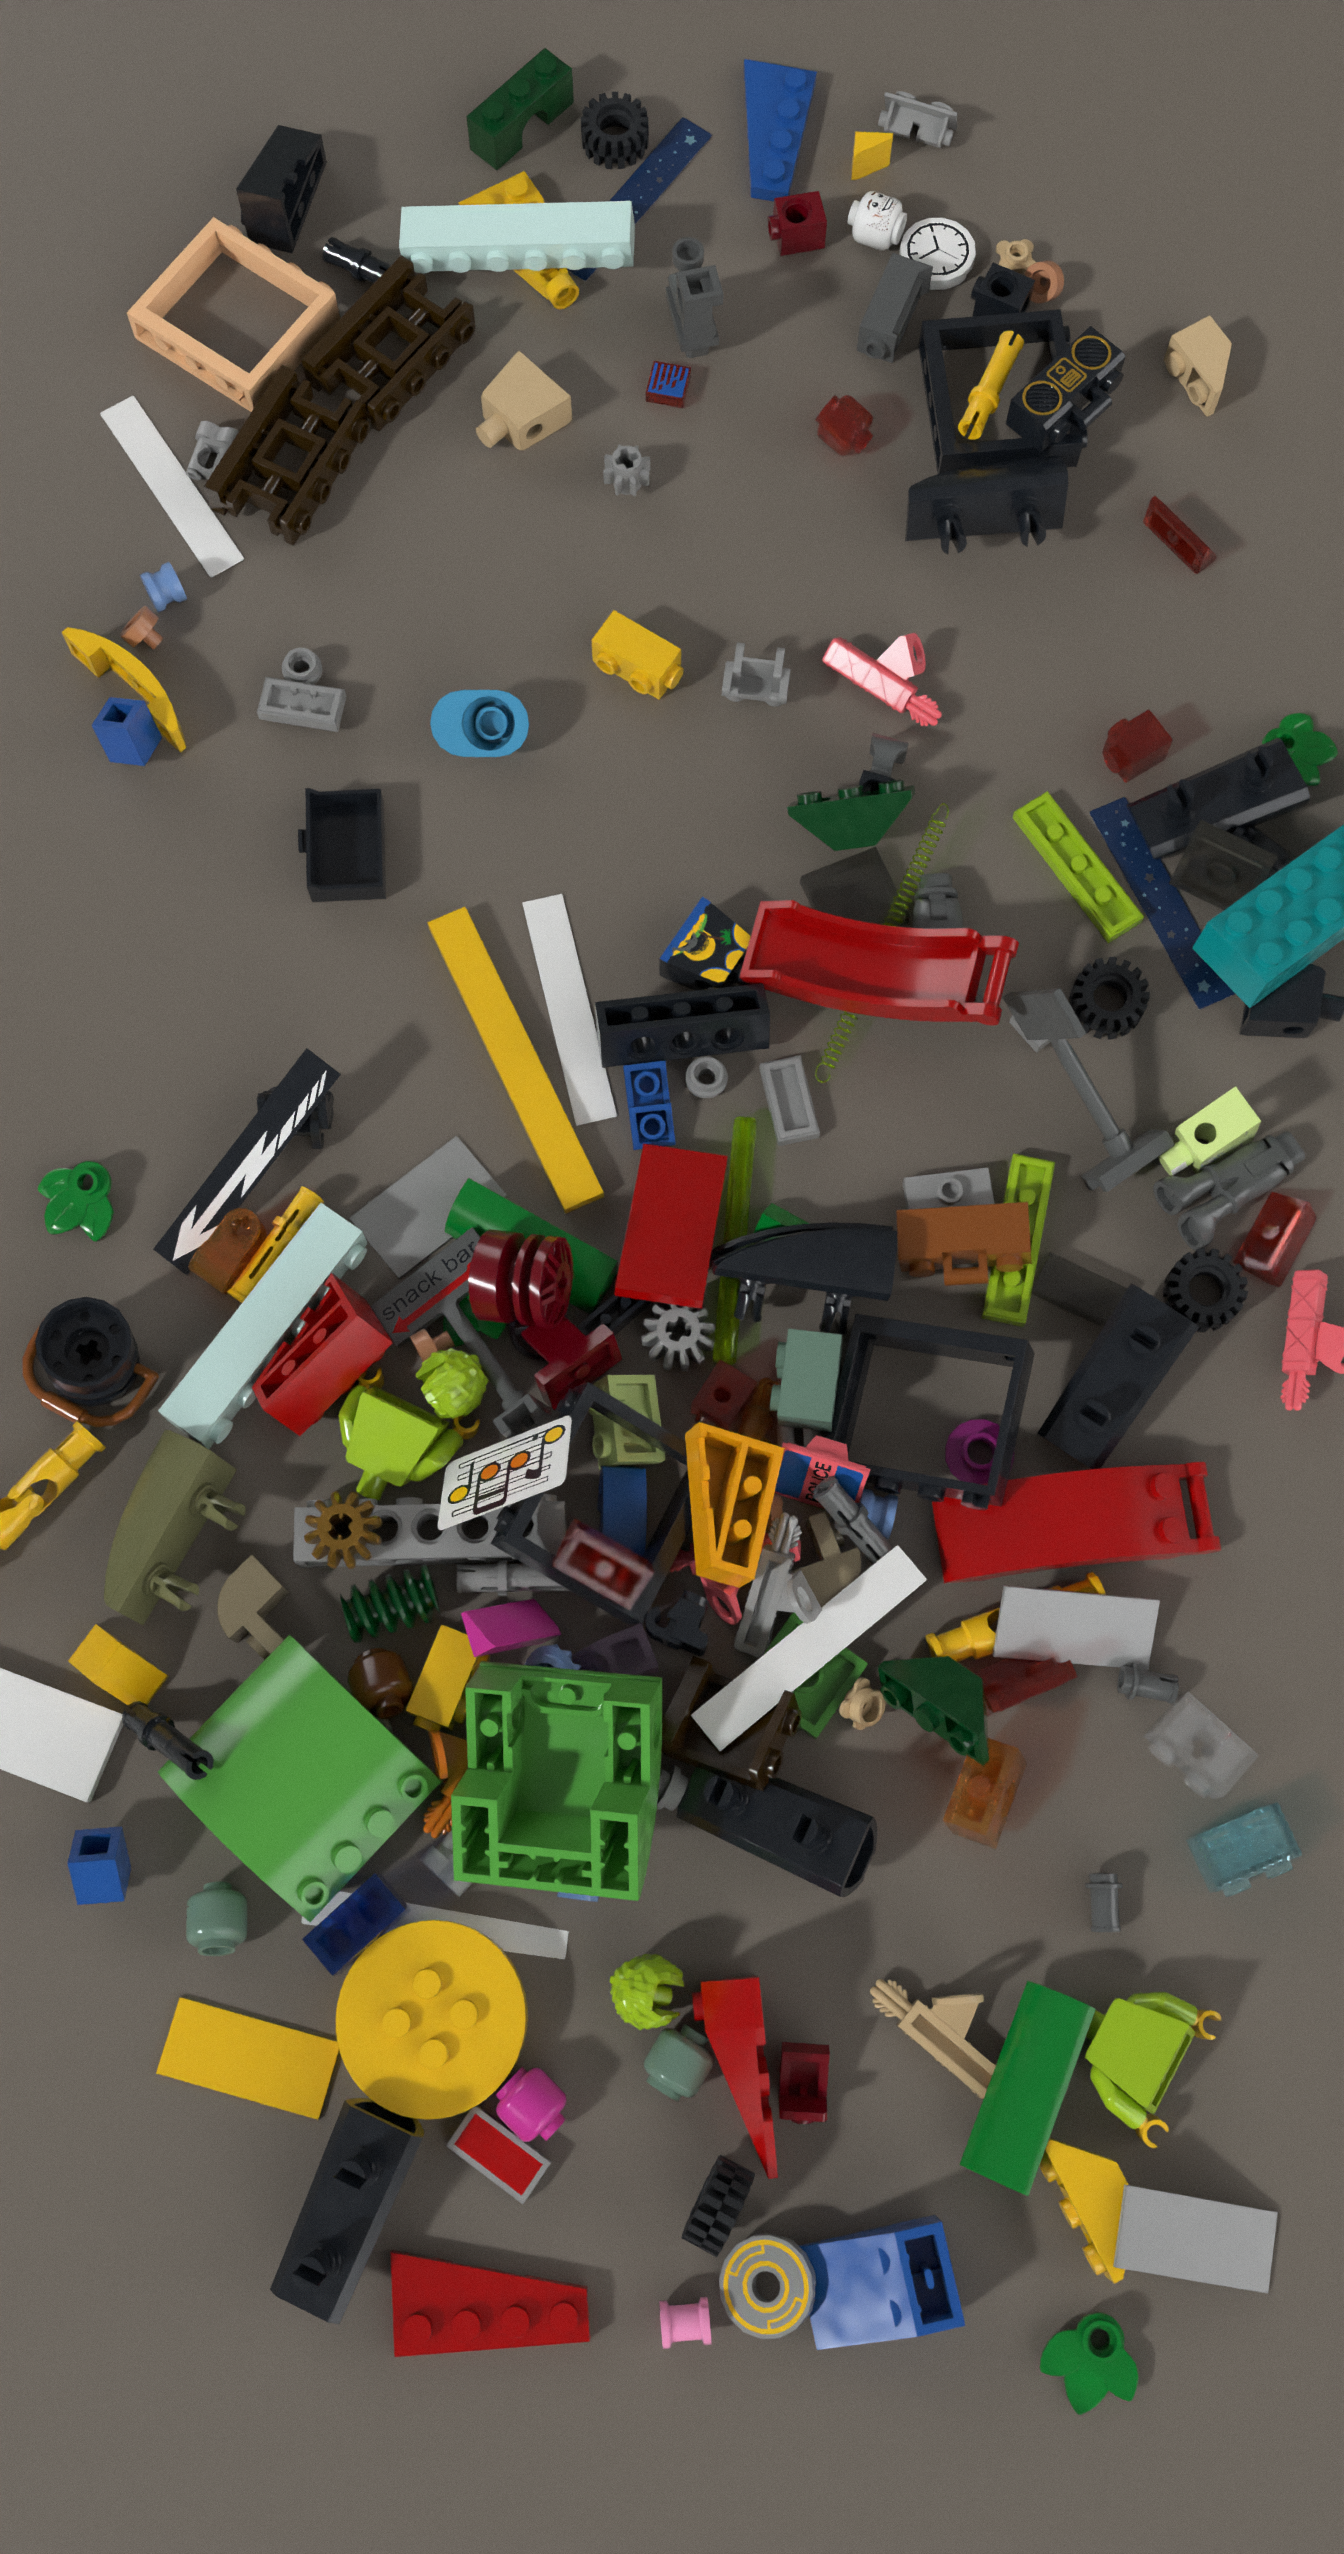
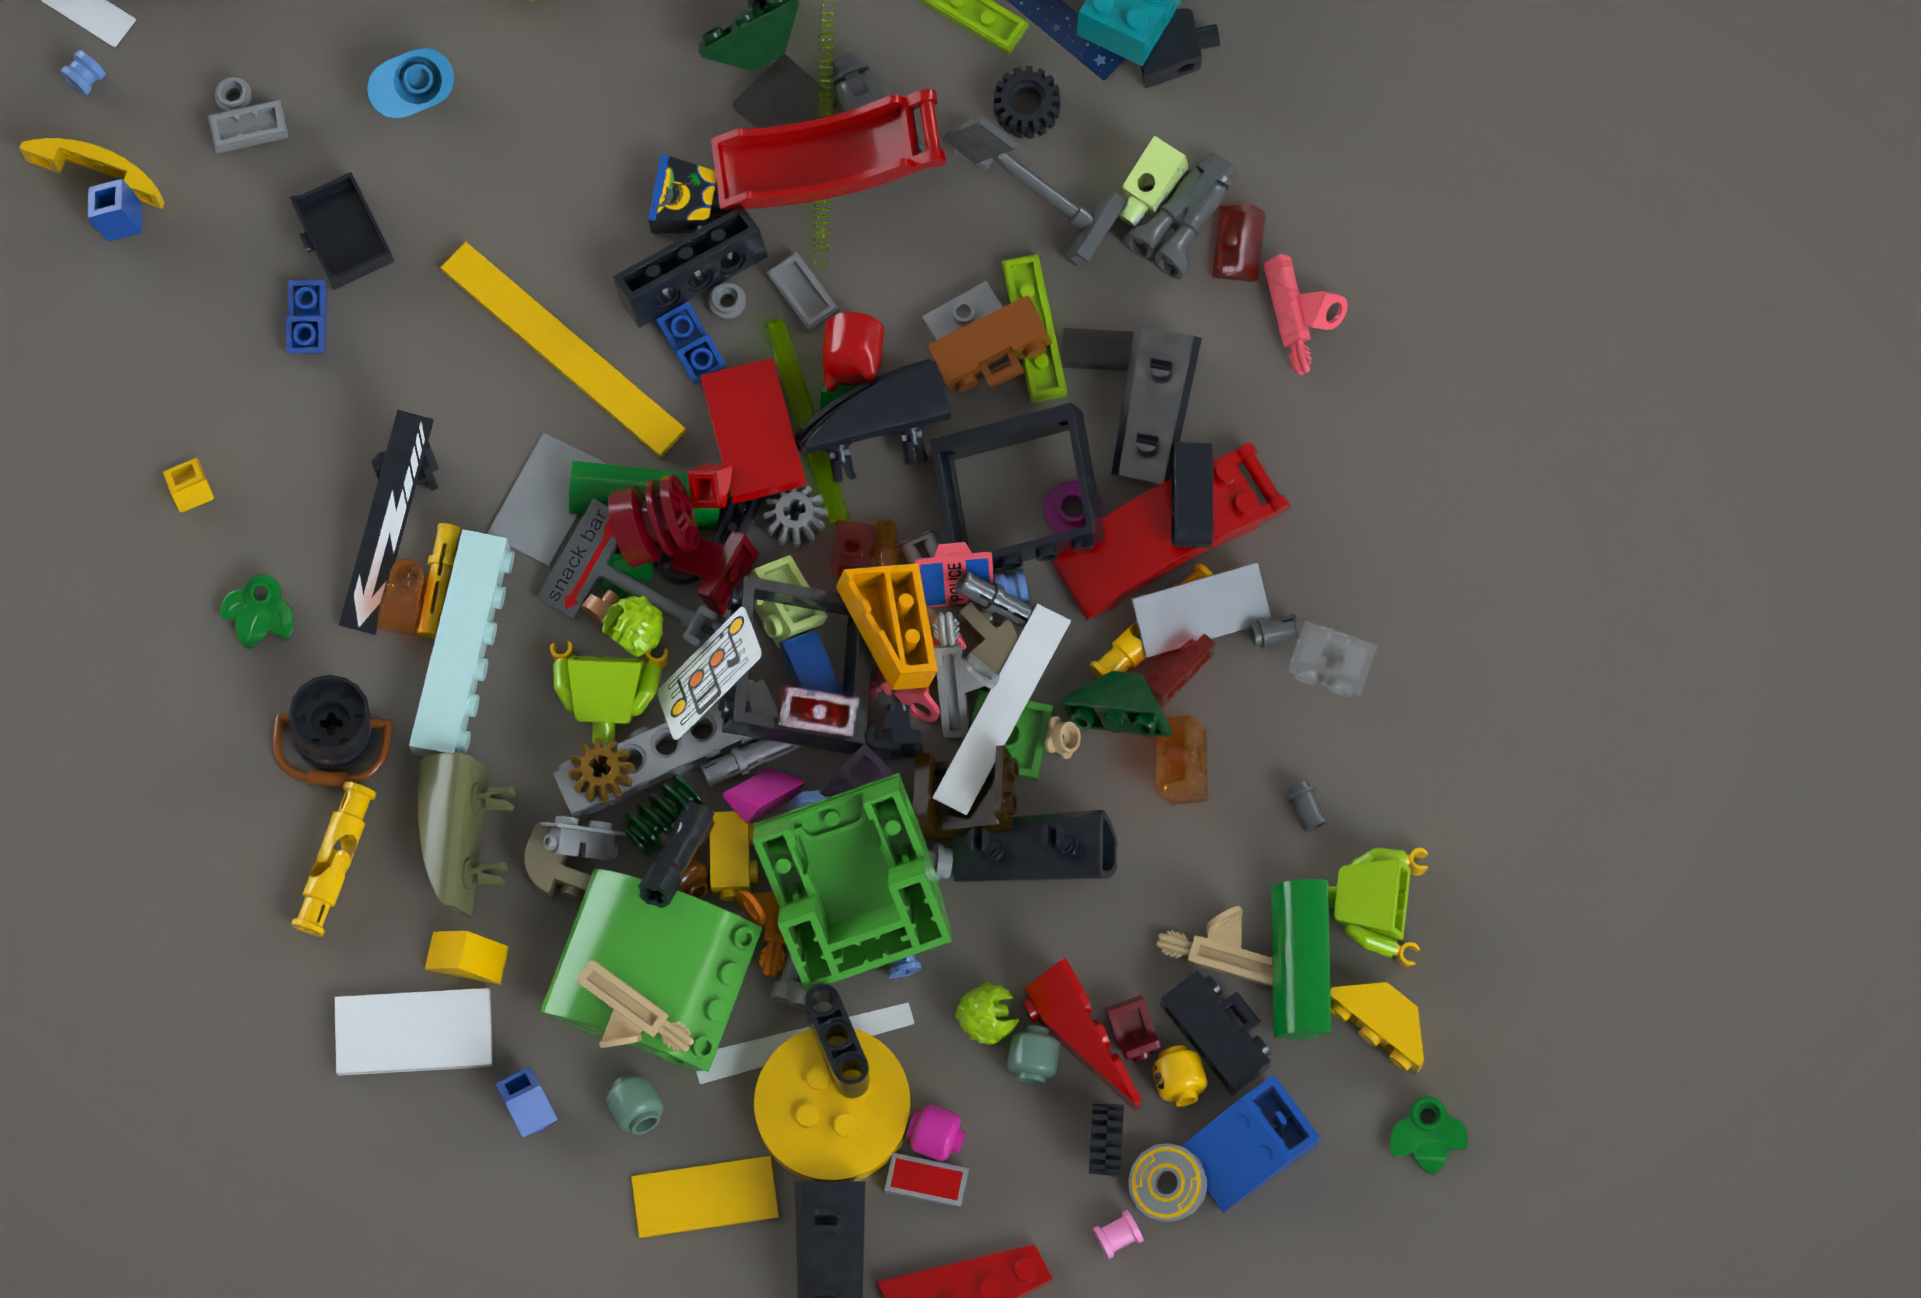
camera: 20 degrees left, 0 degrees up
(71, 1039) = (188, 485): none -> yellow slope
(141, 628) = (80, 116): nougat tile -> none
(159, 1733) = (526, 985): black pin -> none
(244, 1828) = (631, 1011): none -> tan piece
(271, 919) = (306, 317): none -> blue slope
(278, 1582) = (567, 835): none -> light grey hinge
(323, 1359) = (521, 650): red wedge -> none
(352, 1683) = (665, 874): none -> black axle
(356, 1924) = (744, 1058): clear blue brick -> none
(463, 1930) = (837, 1023): none -> black beam
(569, 1009) = (588, 290): white sticker -> none
(598, 1265) = (710, 485): none -> red slope
(810, 1379) = (914, 503): sand green brick -> none
(813, 1182) = (851, 349): none -> red piece
(833, 2161) = (1179, 1075): none -> yellow head
(899, 2153) = (1222, 1045): none -> black piece
(1118, 1498) = (1191, 495): none -> black beam
(1195, 2239) = (1468, 1013): light grey piece -> none
(1222, 1272) = (1202, 286): black tyre -> none
(1245, 1848) = (1396, 721): clear light blue brick -> none

